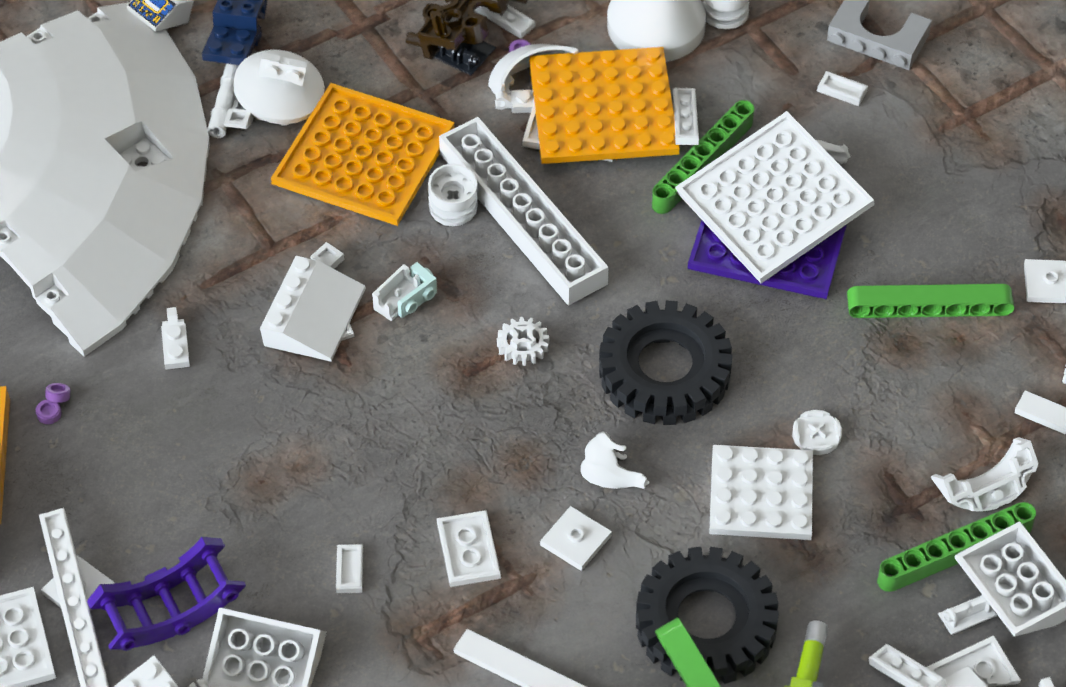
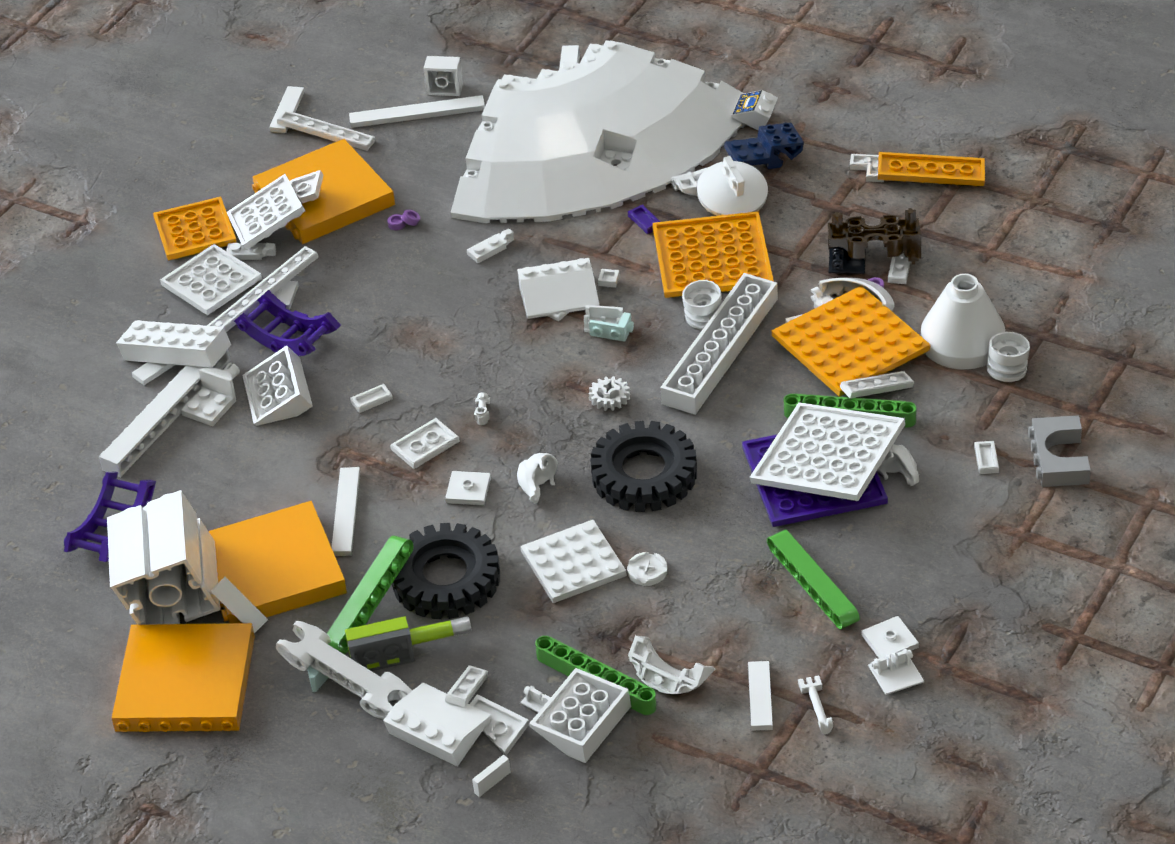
camera: 65 degrees right, 10 degrees down
(249, 184) = (643, 218): none -> dark purple tile
(466, 469) = (481, 413): none -> white bar

